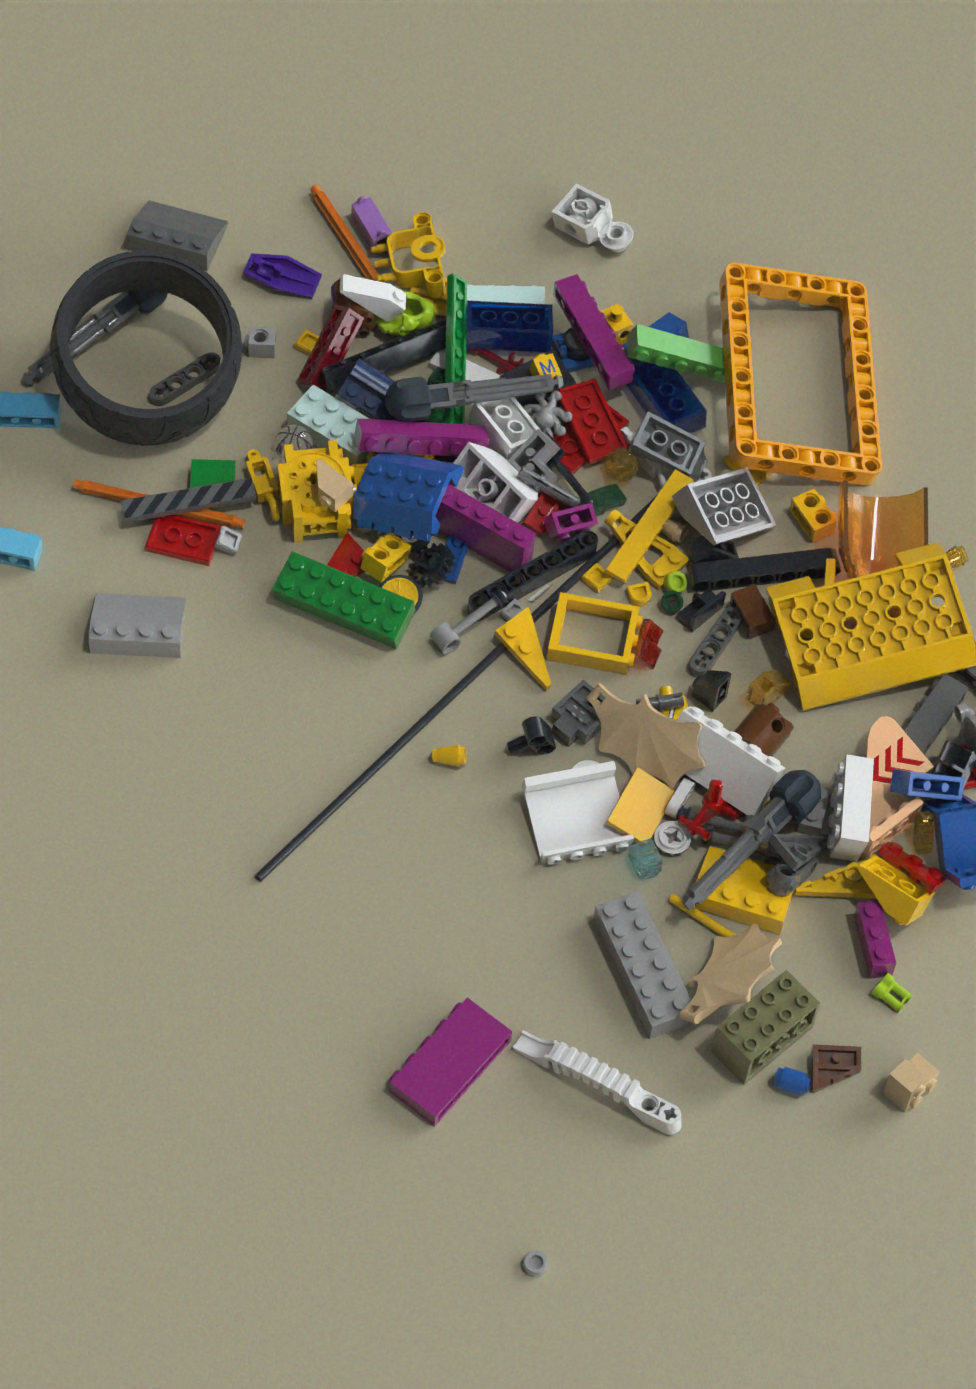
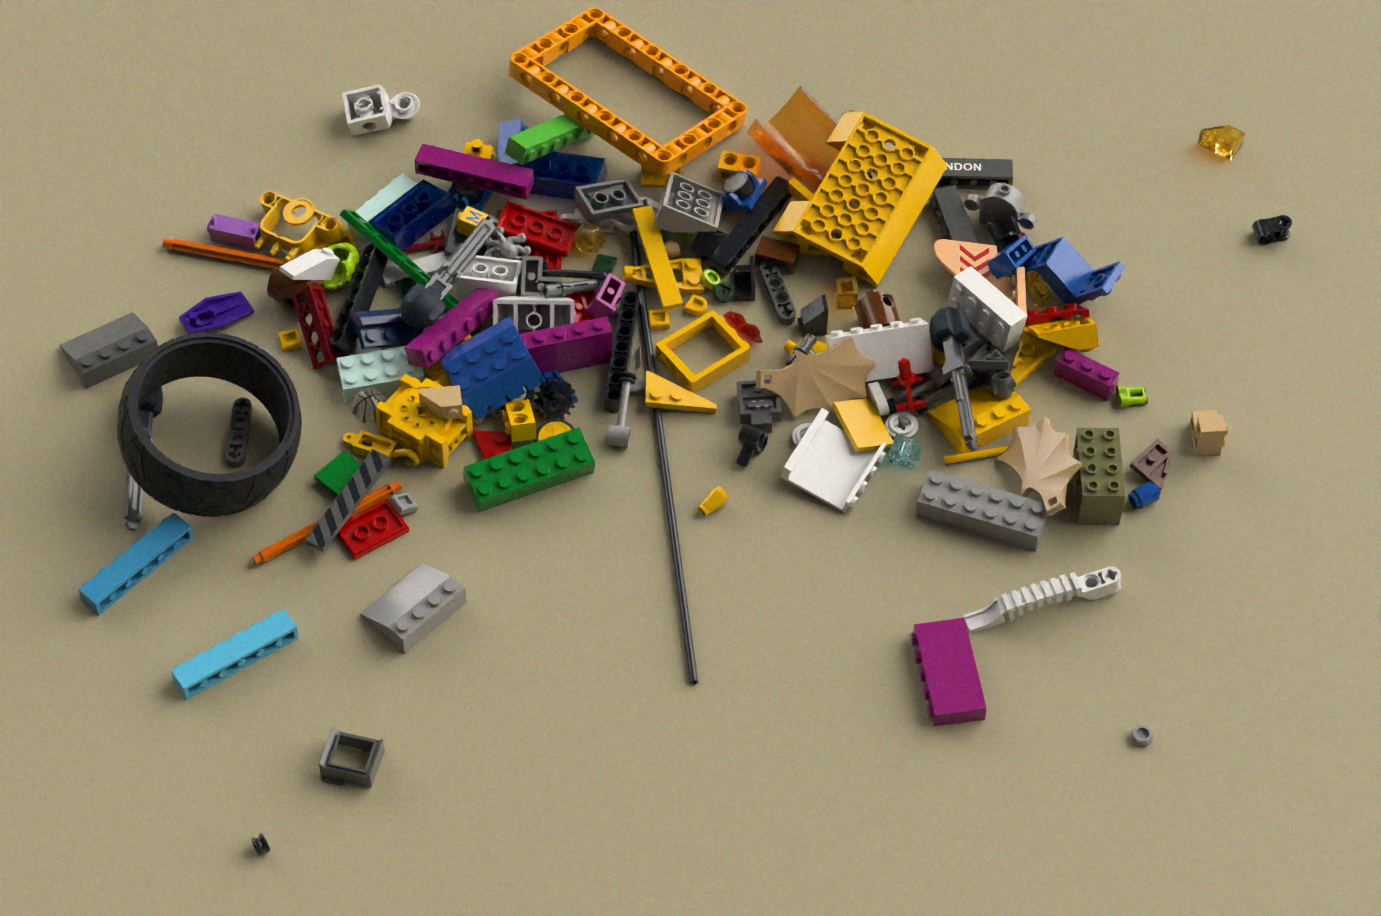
camera: 45 degrees left, 5 degrees down
(786, 534) = (741, 191): none -> piece

